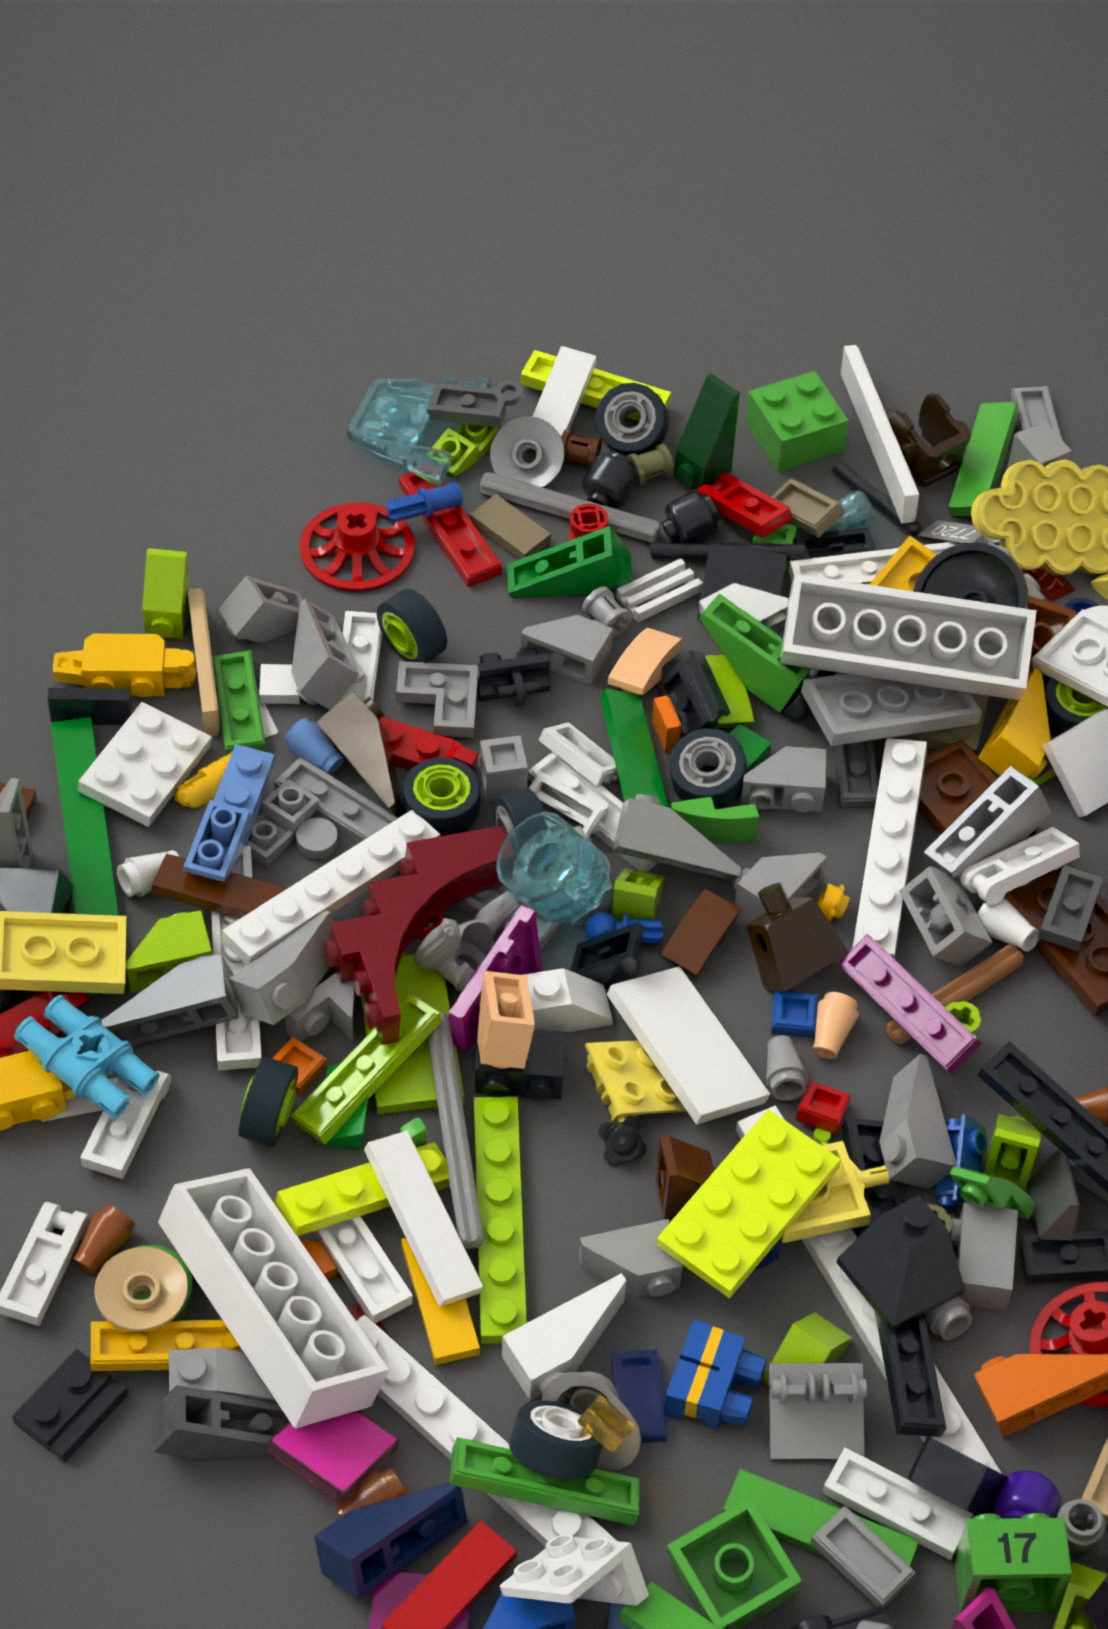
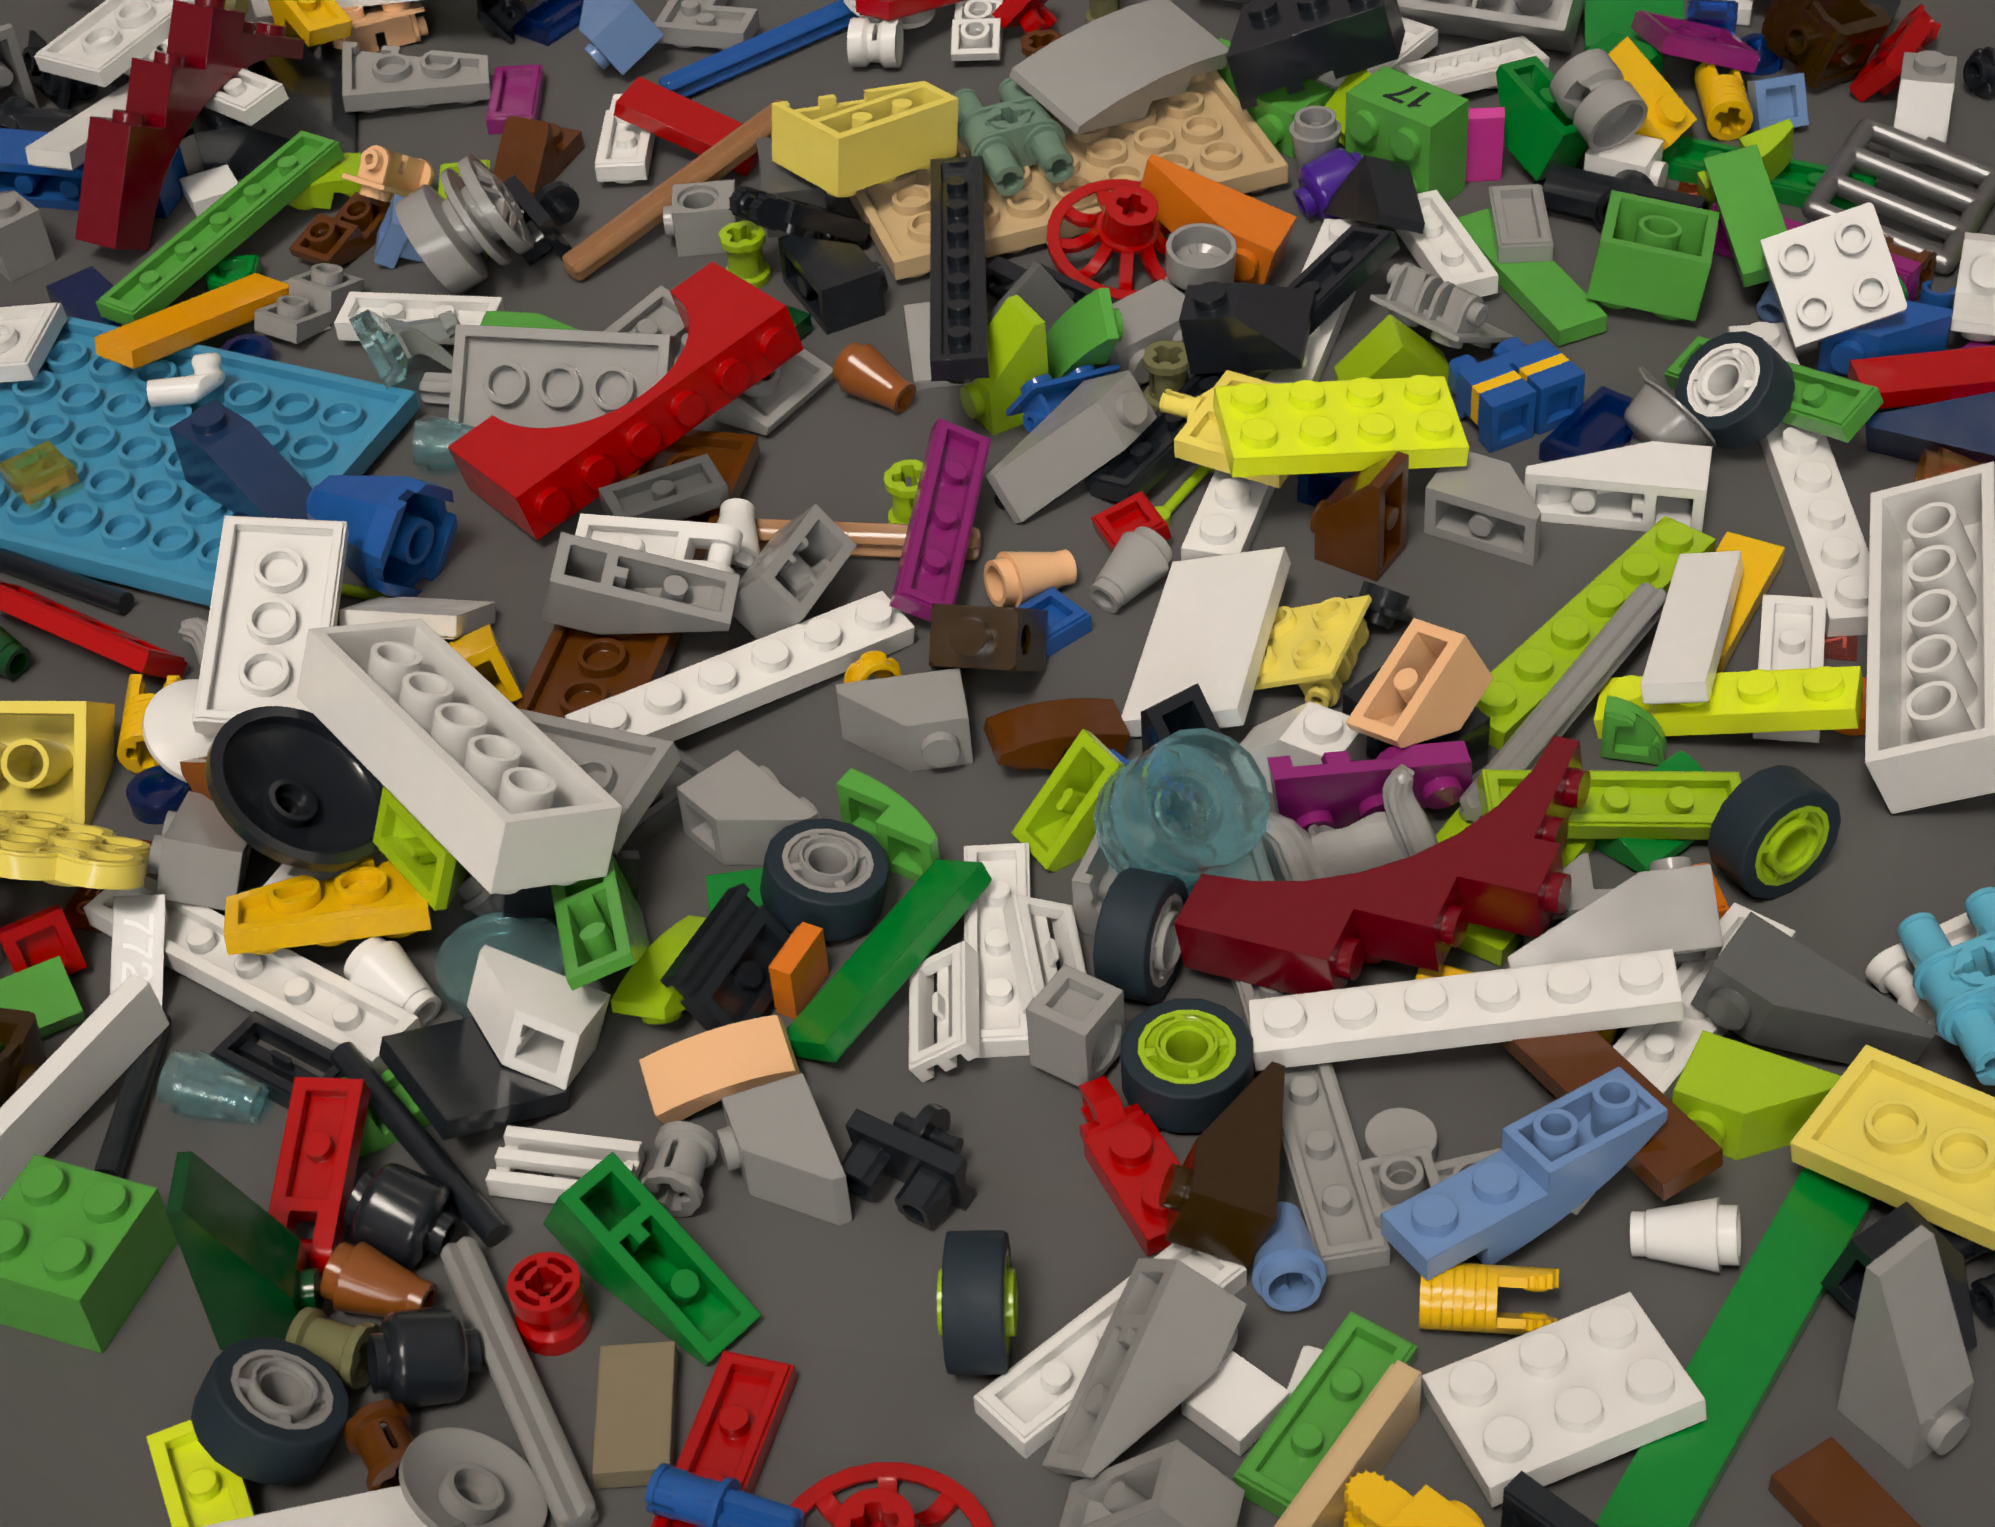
camera: 130 degrees left, 10 degrees down
(448, 687) = (1023, 1199): light grey plate -> none
(606, 1423) = (1677, 361): clear yellow tile -> none
(663, 492) = (371, 1283): none -> dark orange cone
(666, 838) = (994, 809): light grey slope -> none
(809, 507) = (249, 1116): dark tan tile -> none
(1002, 1323) = (1200, 255): none -> light grey wheel

